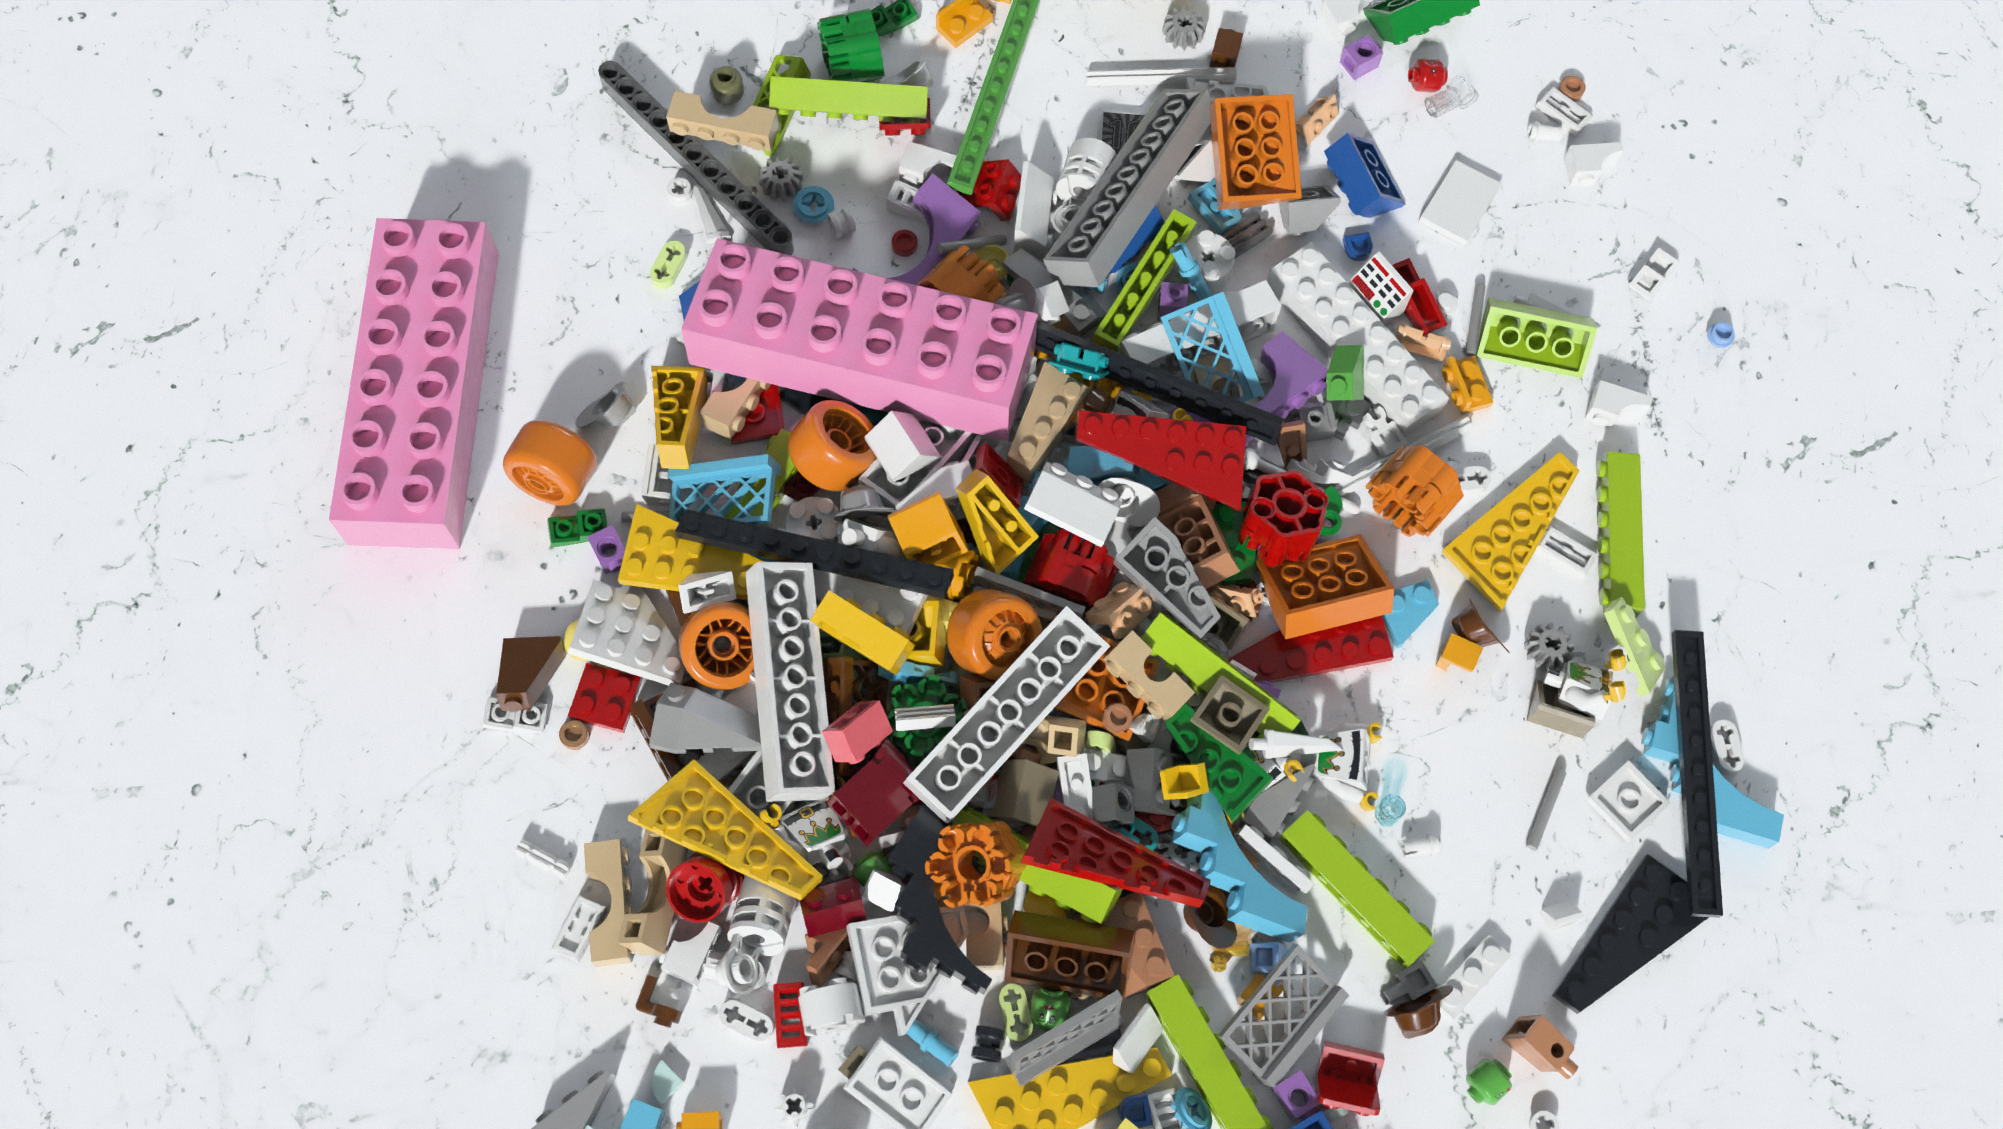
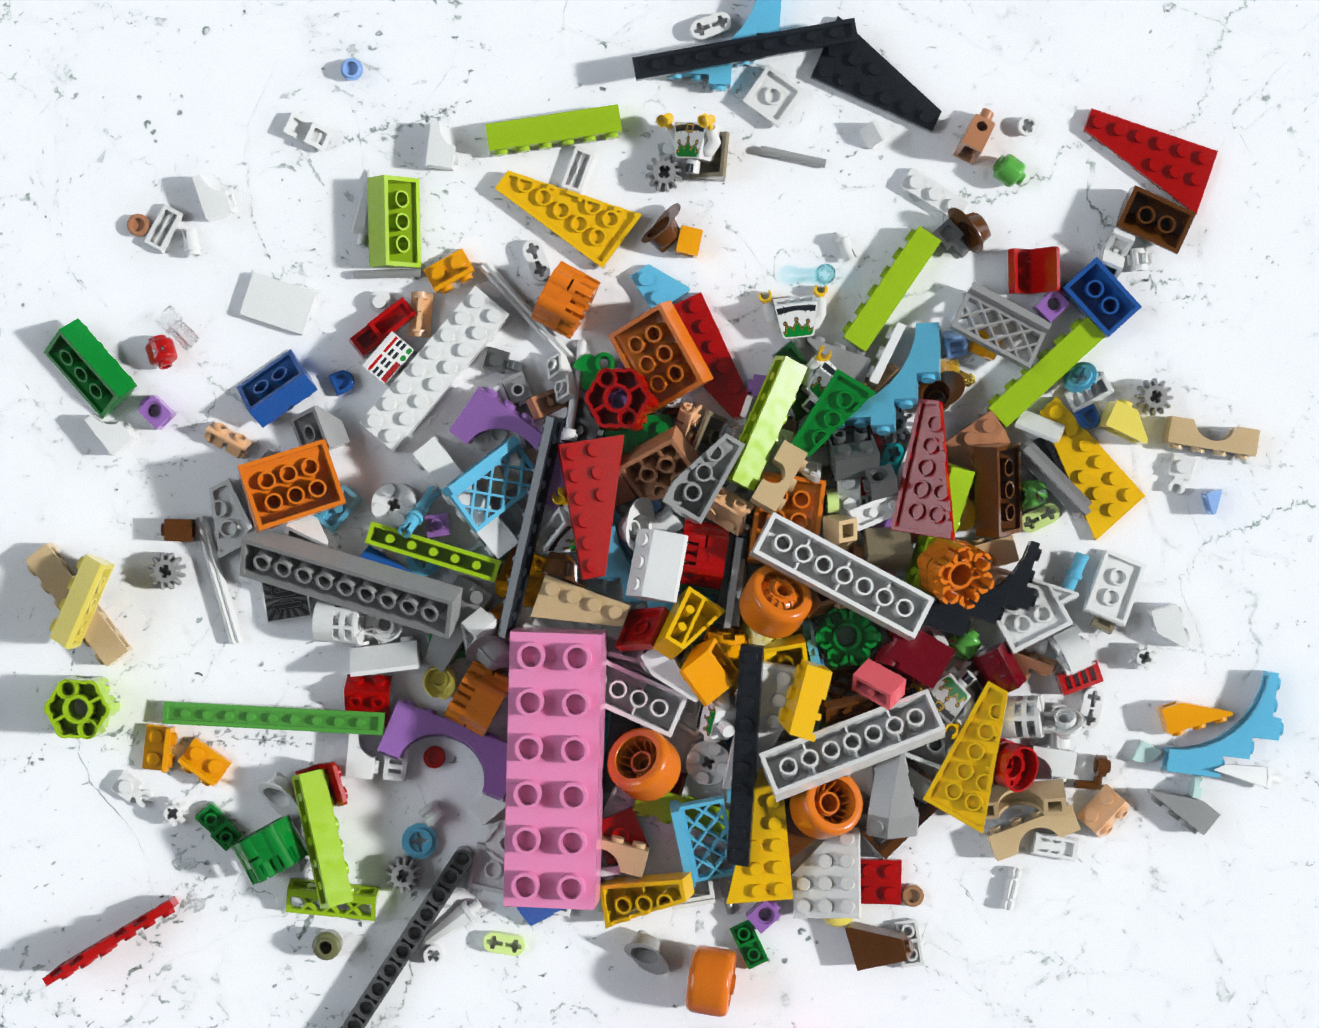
camera: 100 degrees left, 20 degrees up
(604, 1004) = (1104, 811): none -> light nougat bracket
(705, 589) = (791, 830): white slope -> none
(752, 128) = (372, 907): tan arch -> none
(861, 503) = (689, 729): light grey piece -> none
(883, 889) = (981, 634): white slope -> none
(901, 445) = (635, 710): white slope -> none
(925, 717) = (854, 637): white tile -> none
(975, 243) = (427, 700): light grey bar -> none
(988, 1044) = (1067, 532): black wheel -> none
(1090, 365) = (531, 580): teal hinge -> none
(1117, 718) = (814, 493): nougat tile -> none
(1184, 781) = (854, 433): yellow panel -> none
(1230, 714) = (798, 410): dark tan slope -> none
(1260, 224) = (341, 466): dark grey tile -> none
(1283, 744) = (805, 362): white bar -> none
(1346, 373) = (477, 372): bright green slope -> none
(1386, 435) = (514, 329): white plate -> none
(1636, 641) = (652, 105): yellowish green wing -> none

